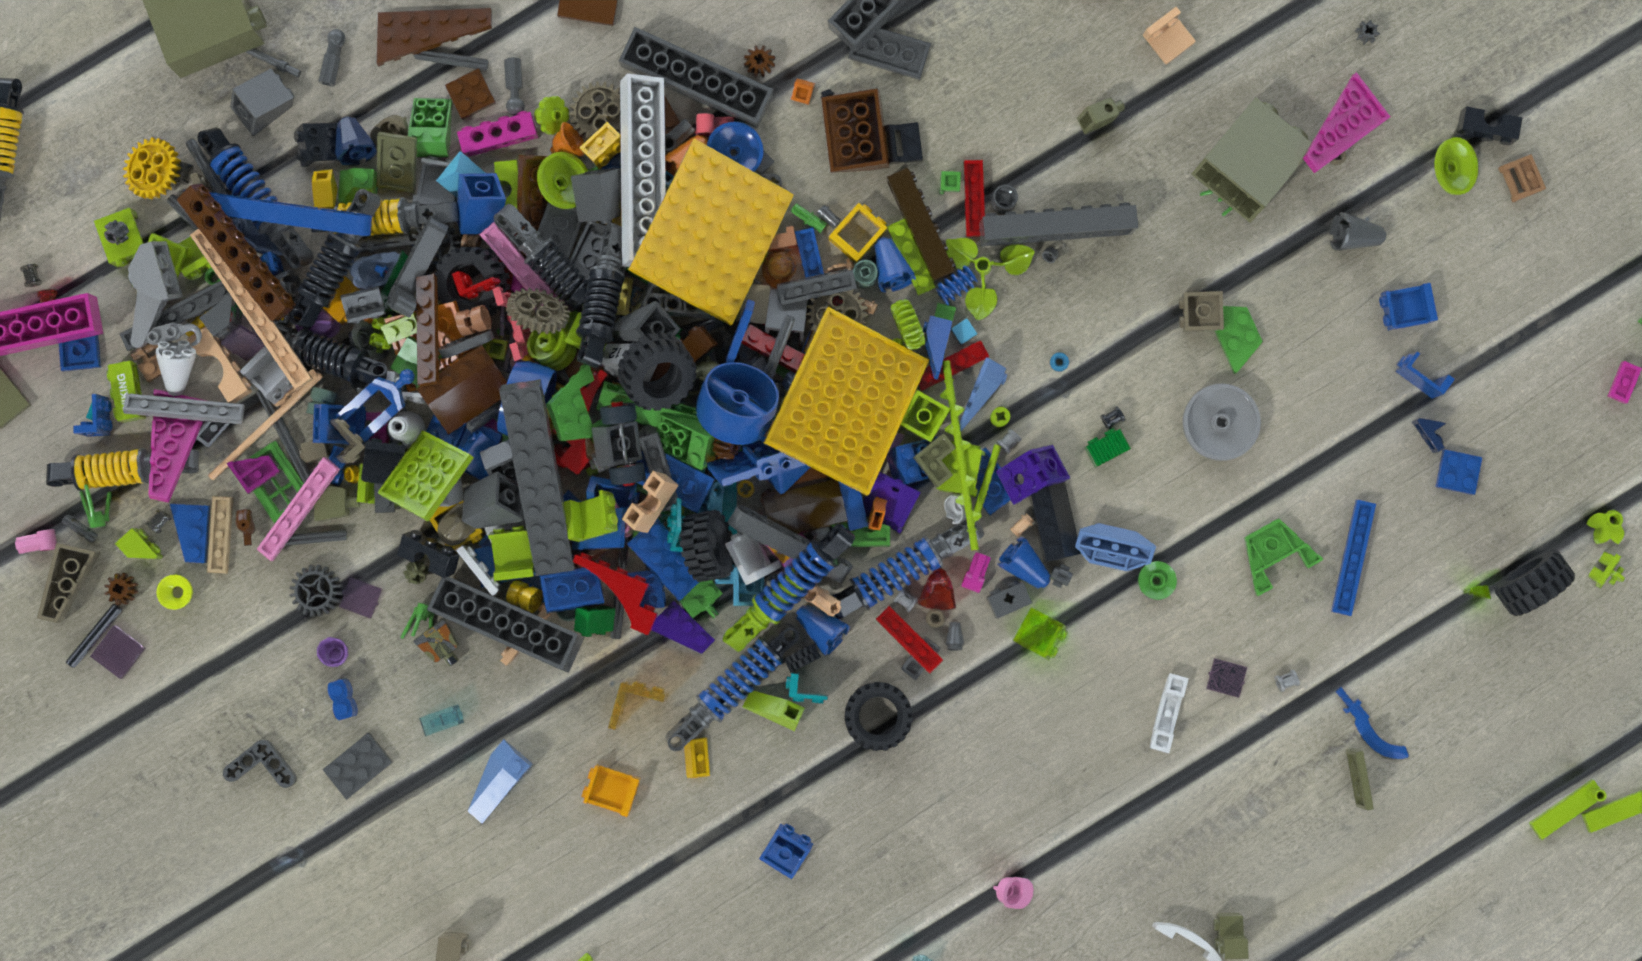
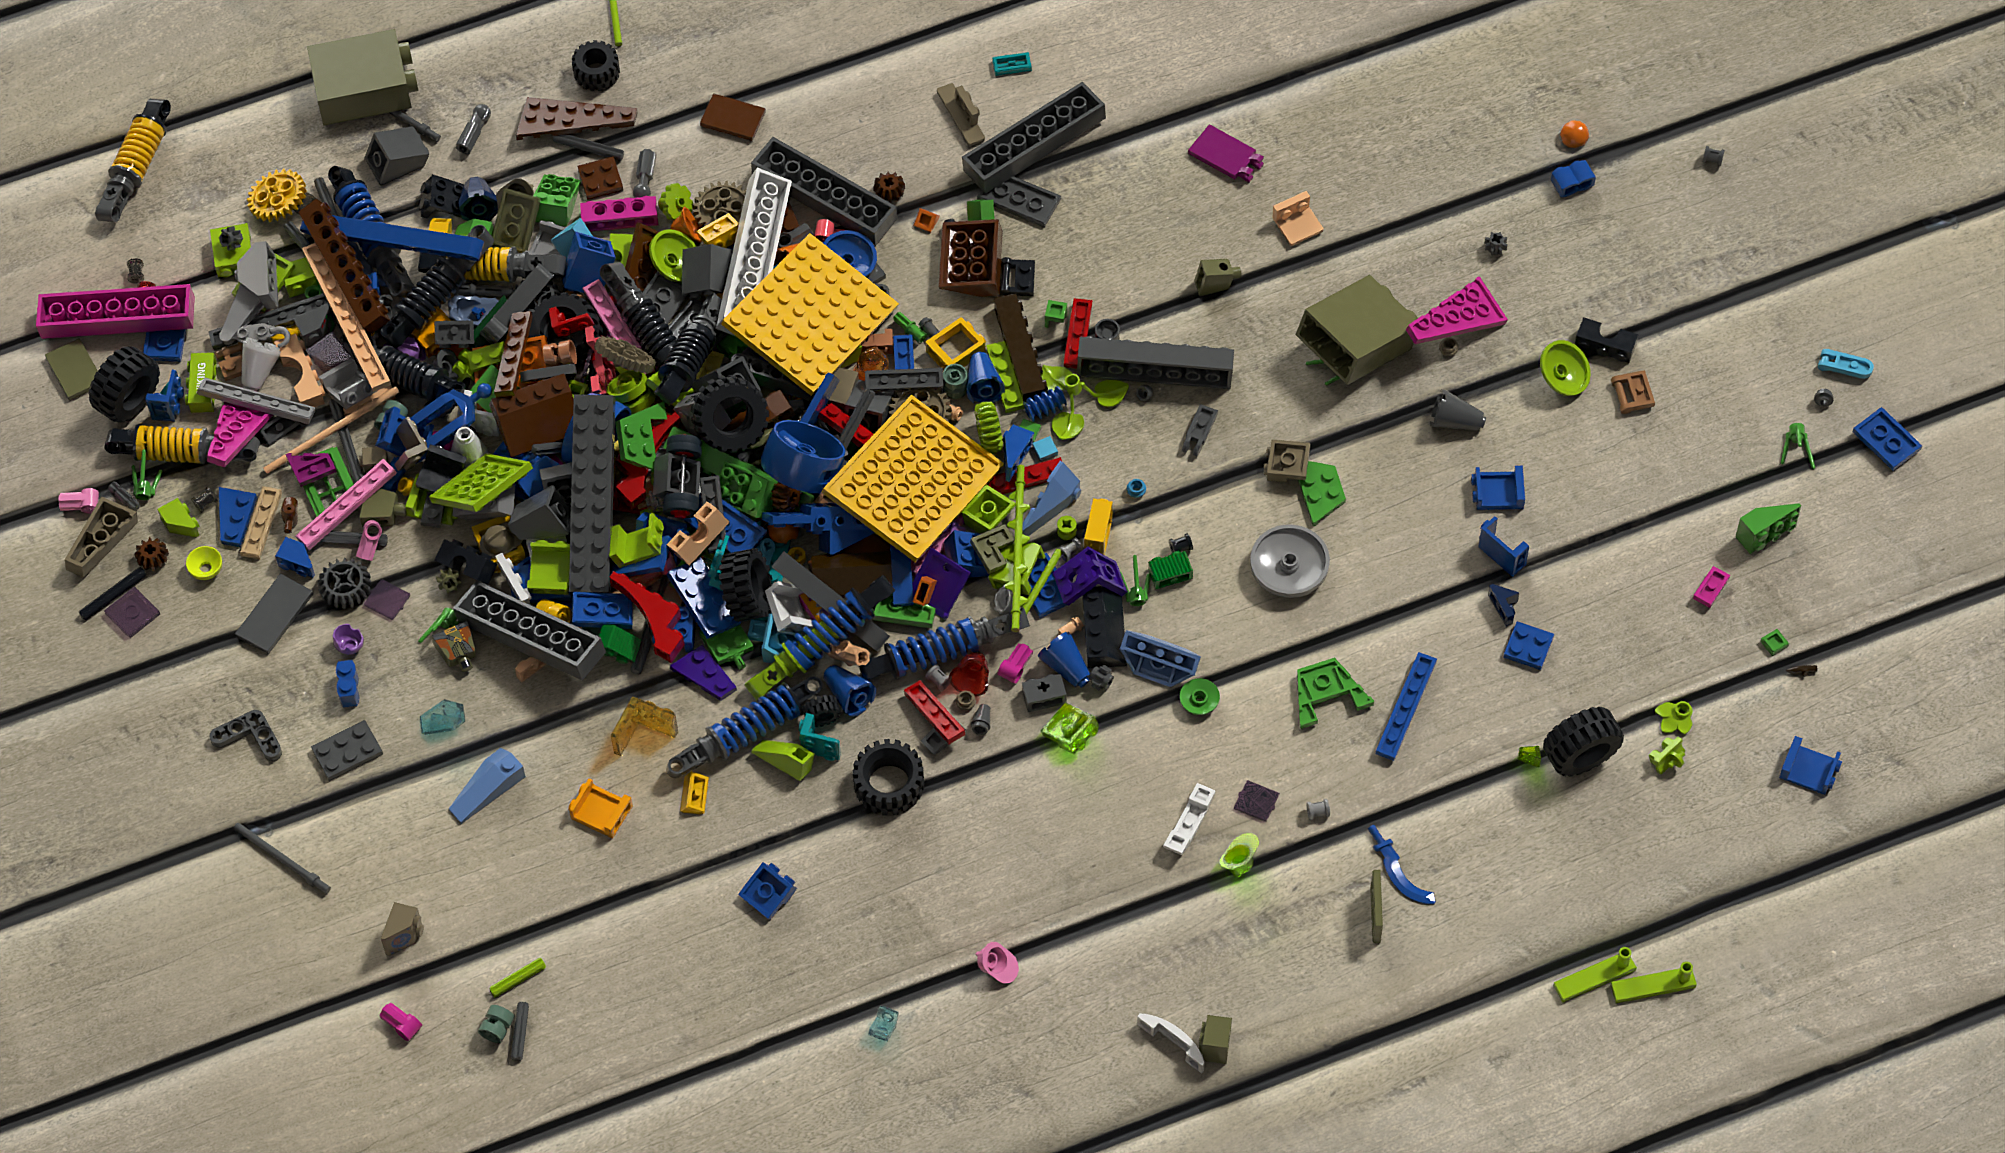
camera: 10 degrees right, 25 degrees down
(48, 418) = (123, 383): none -> black tyre
(255, 632) = (274, 613): none -> dark grey tile
(262, 569) = (294, 557): none -> blue slope
(329, 544) = (368, 542): none -> bright pink piece
(354, 906) = (311, 878): none -> dark grey bar
(855, 75) = (980, 210): none -> bright green panel
(1033, 418) = (1099, 525): none -> yellow window
(1080, 479) = (1137, 595): none -> bright green plant
(1110, 286) = (1200, 428): none -> dark grey hinge
(1222, 742) = (1240, 854): none -> clear neon green piece

